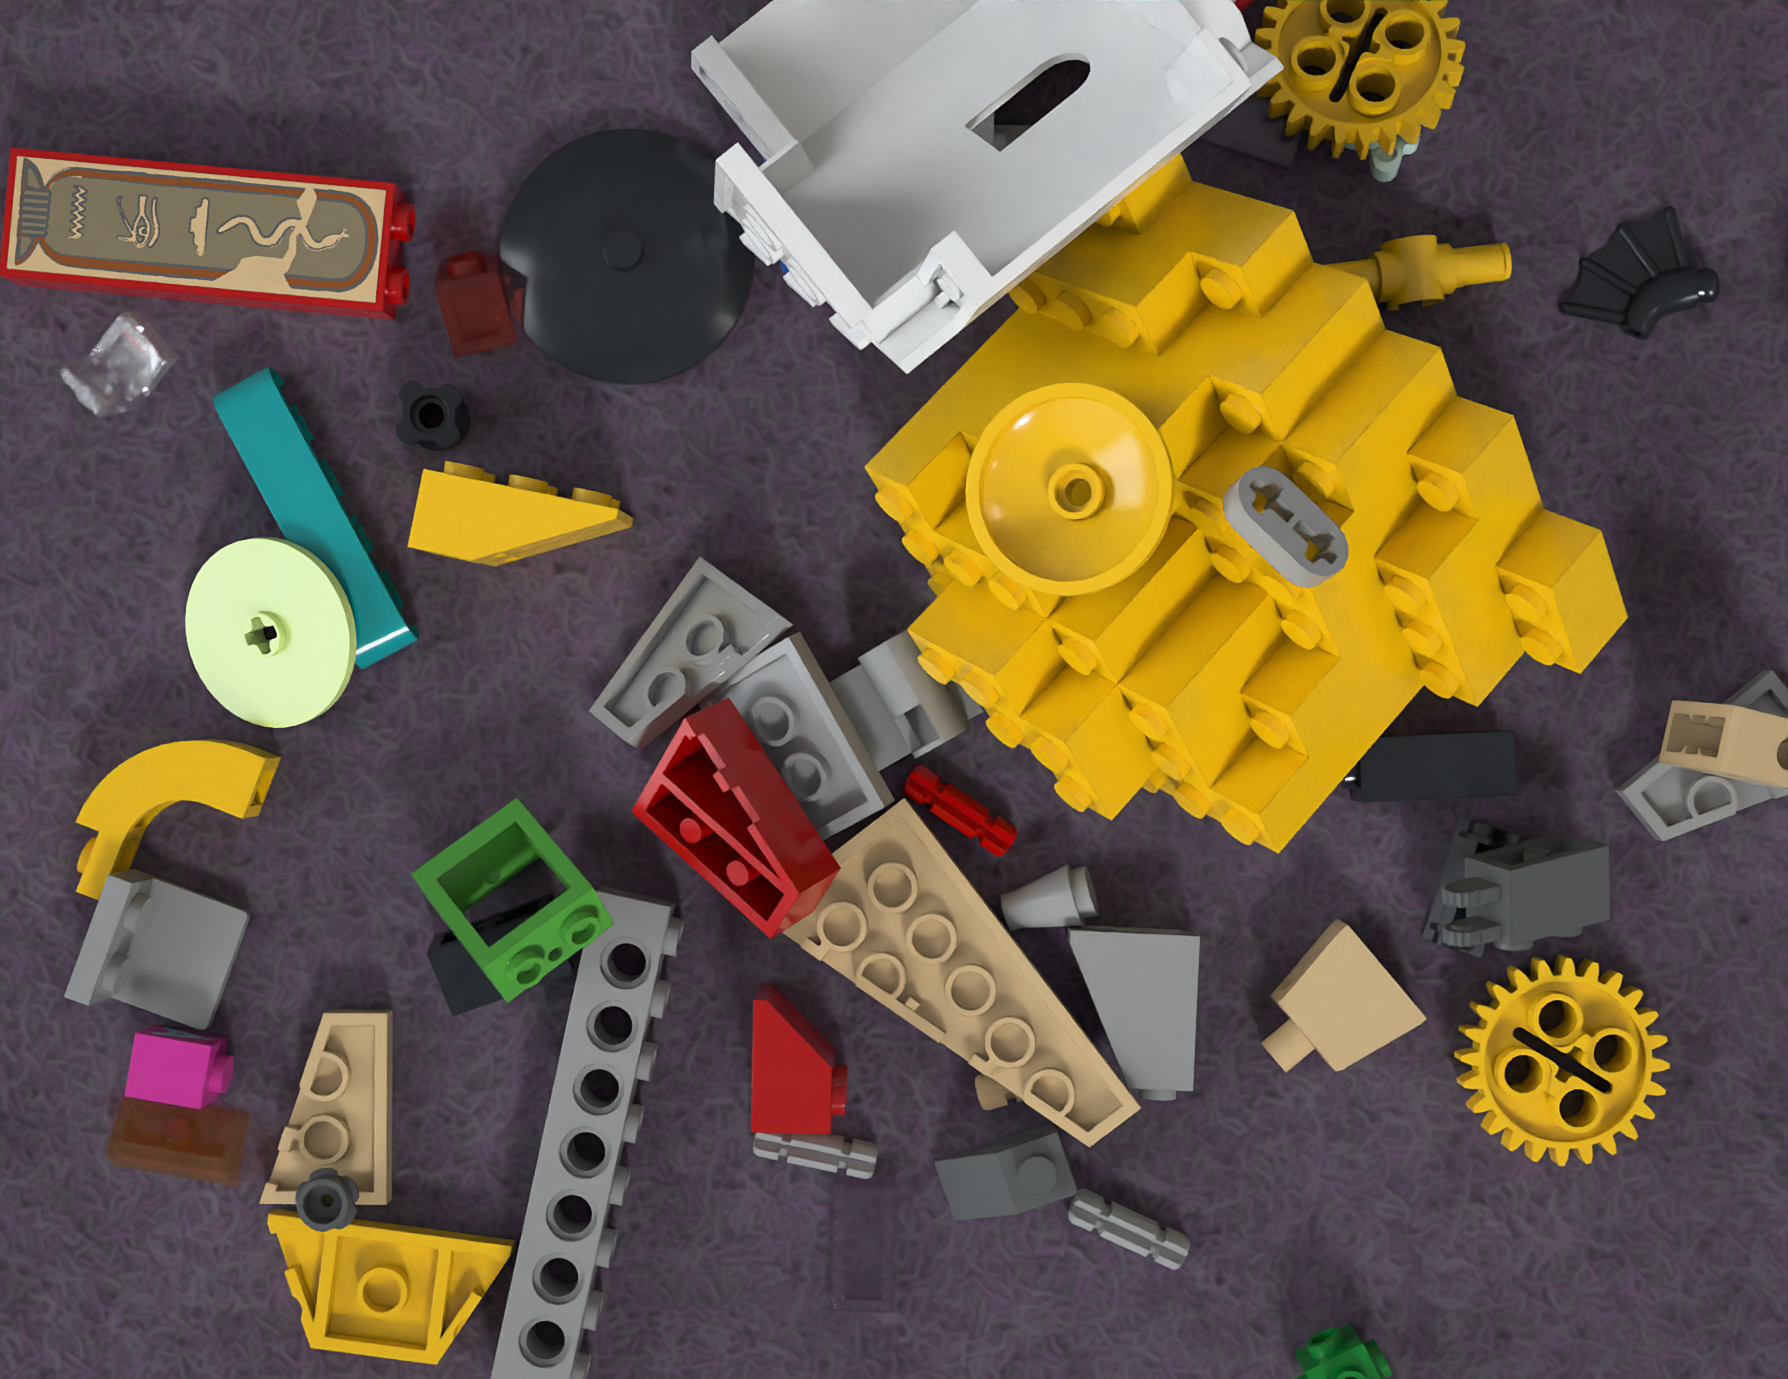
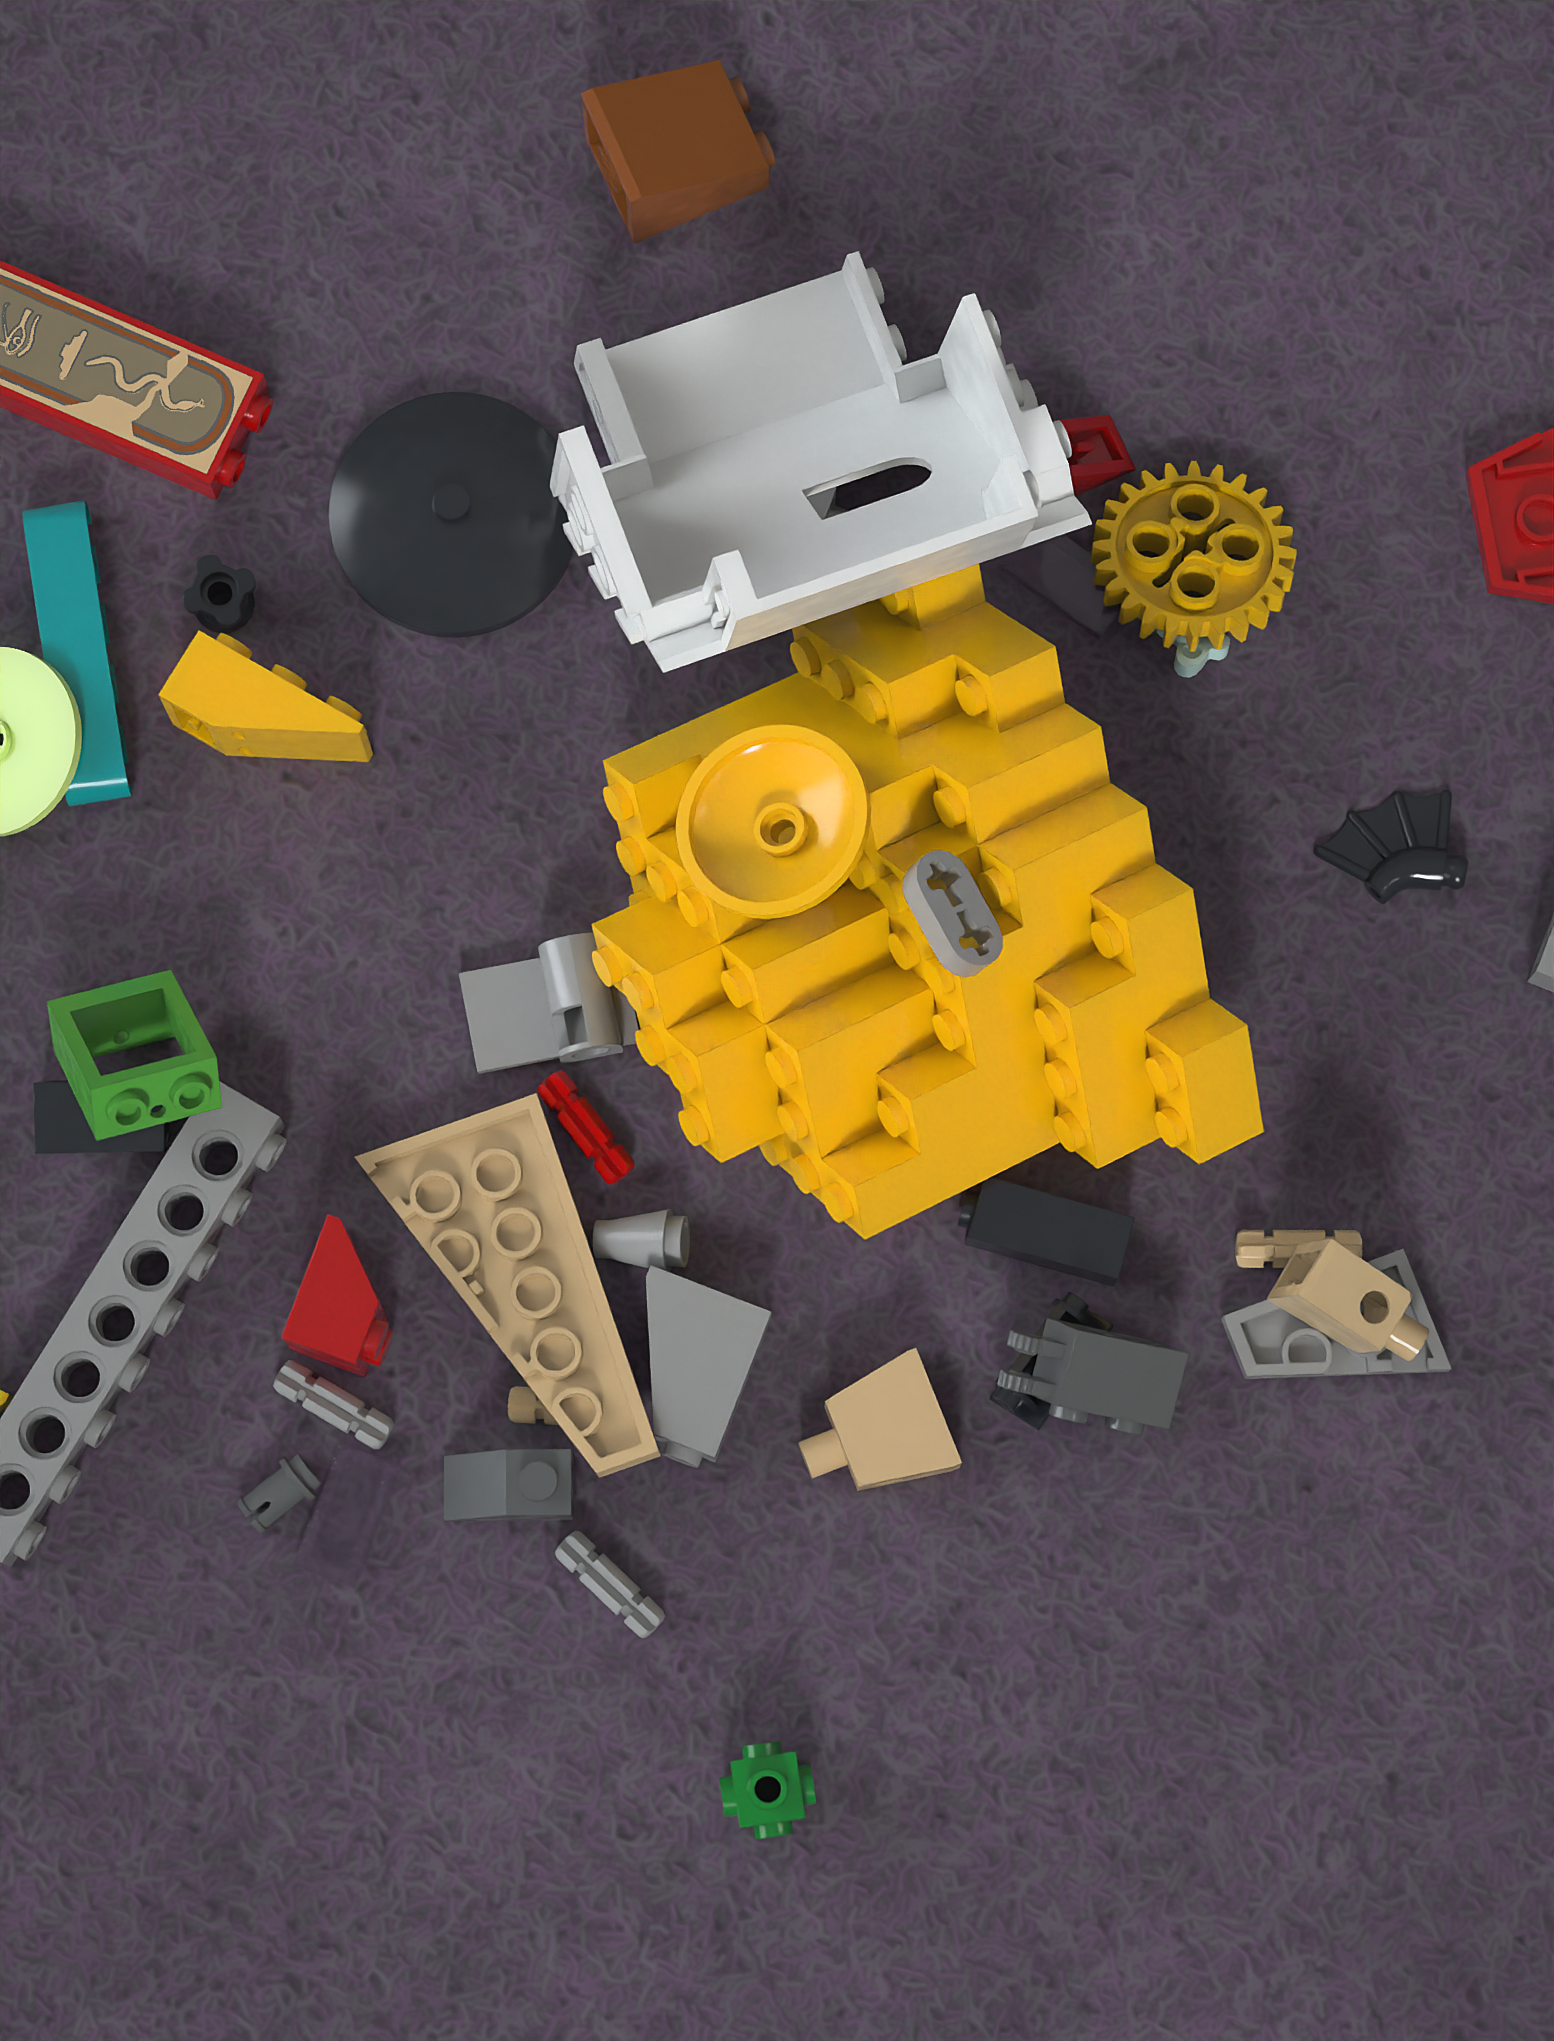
camera: 20 degrees right, 10 degrees down
(474, 303) = (296, 508): clear red bracket -> none
(686, 653) = (379, 889): light grey wing -> none
(737, 820) = (371, 1052): red wedge -> none
(794, 1249) = (283, 1491): none -> dark grey pin
(806, 735) = (448, 1009): light grey plate -> none
(1426, 271) = (1188, 768): yellow pin -> none
(1590, 1012) = (1128, 1518): yellow gear -> none
(1654, 702) = (1254, 1248): none -> tan axle

